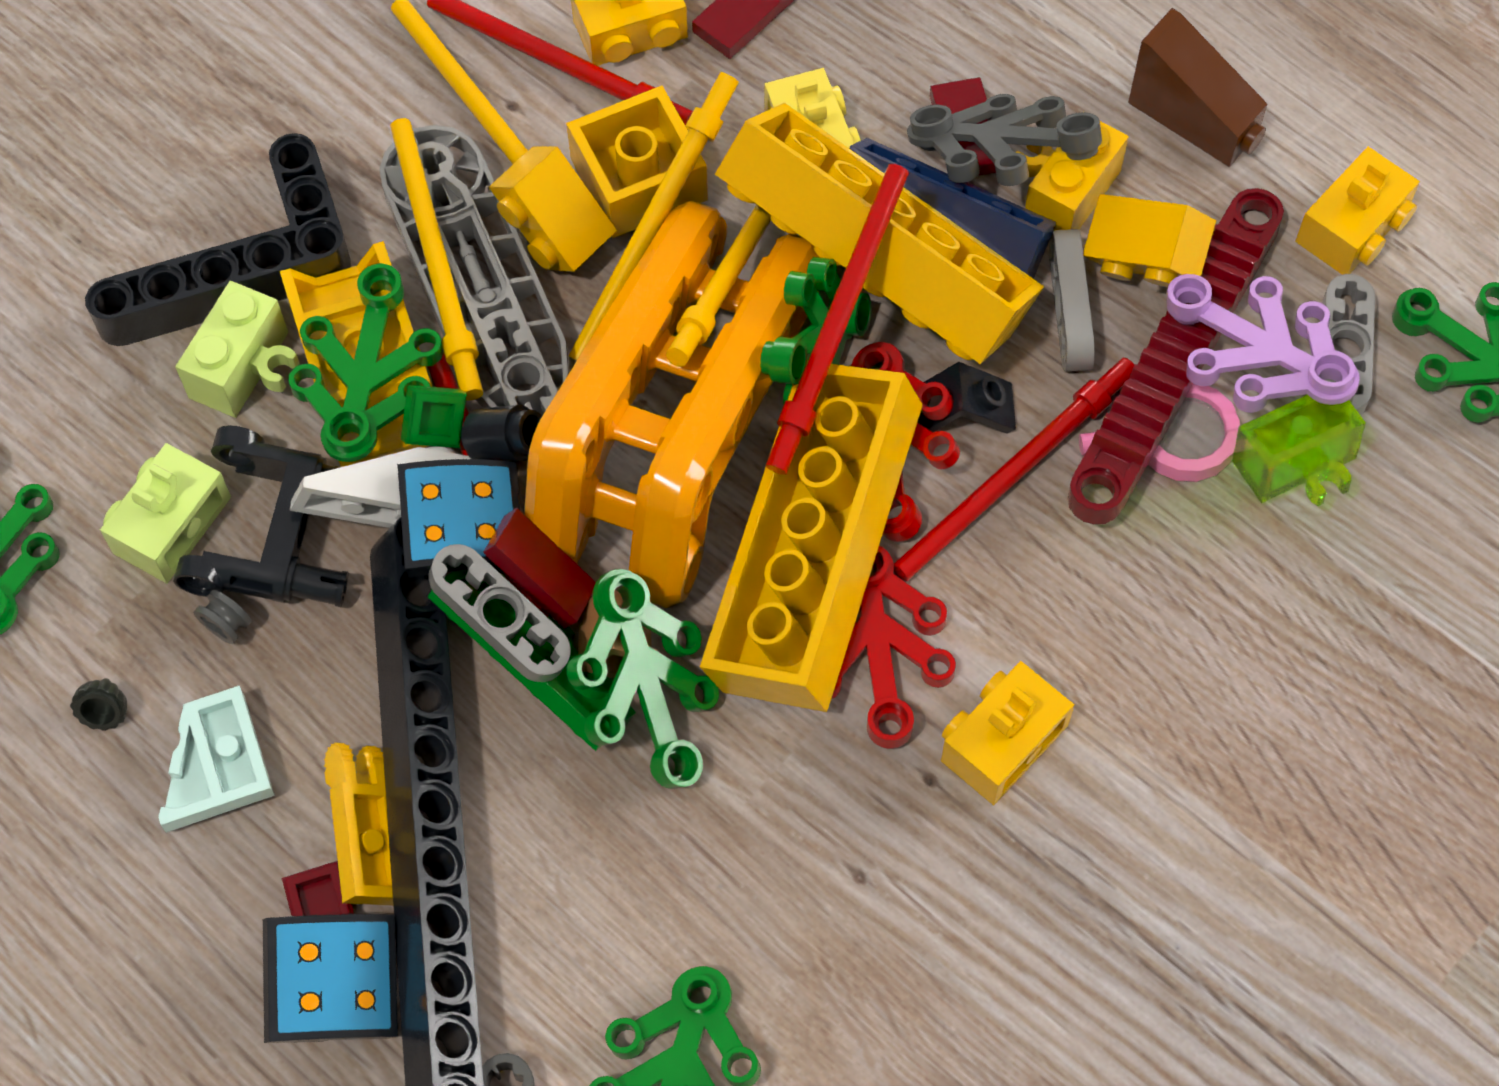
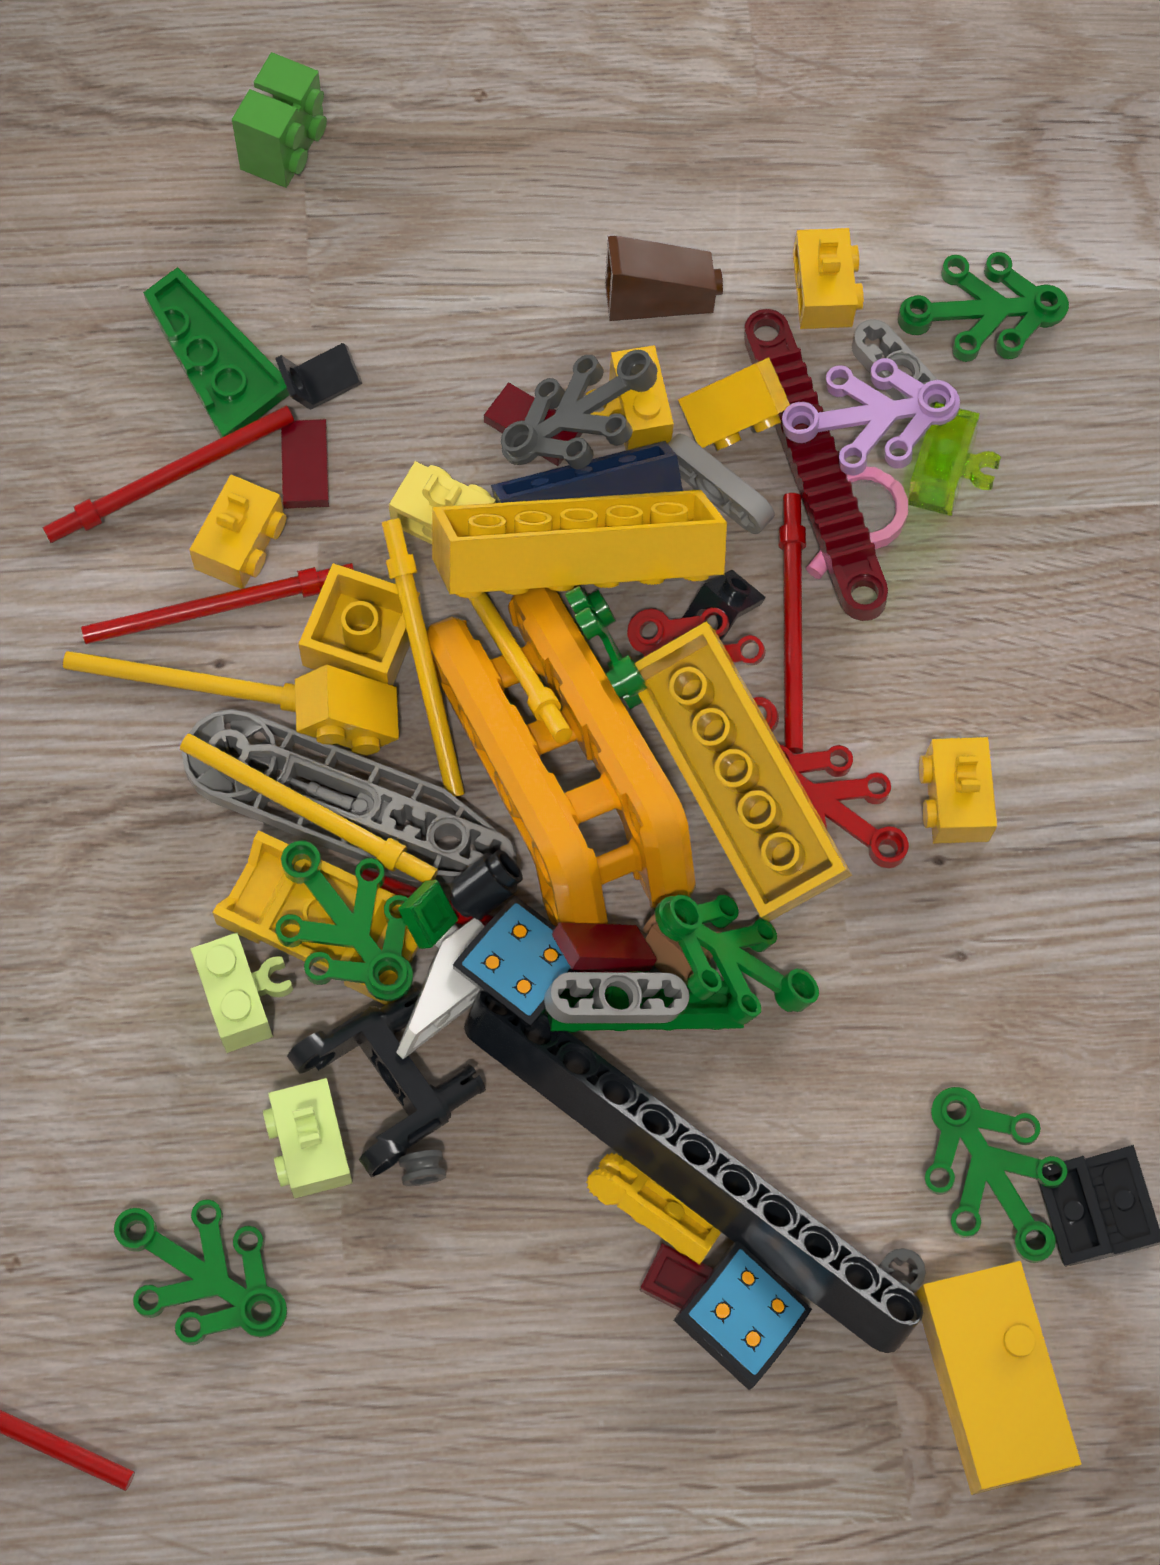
camera: 50 degrees left, 5 degrees up
(99, 704) = (406, 1297): pearl dark grey piece -> none
(216, 761) = (519, 1259): light aqua wing -> none
(241, 261) = (168, 931): black beam -> none
(798, 415) = (667, 705): red bar -> none

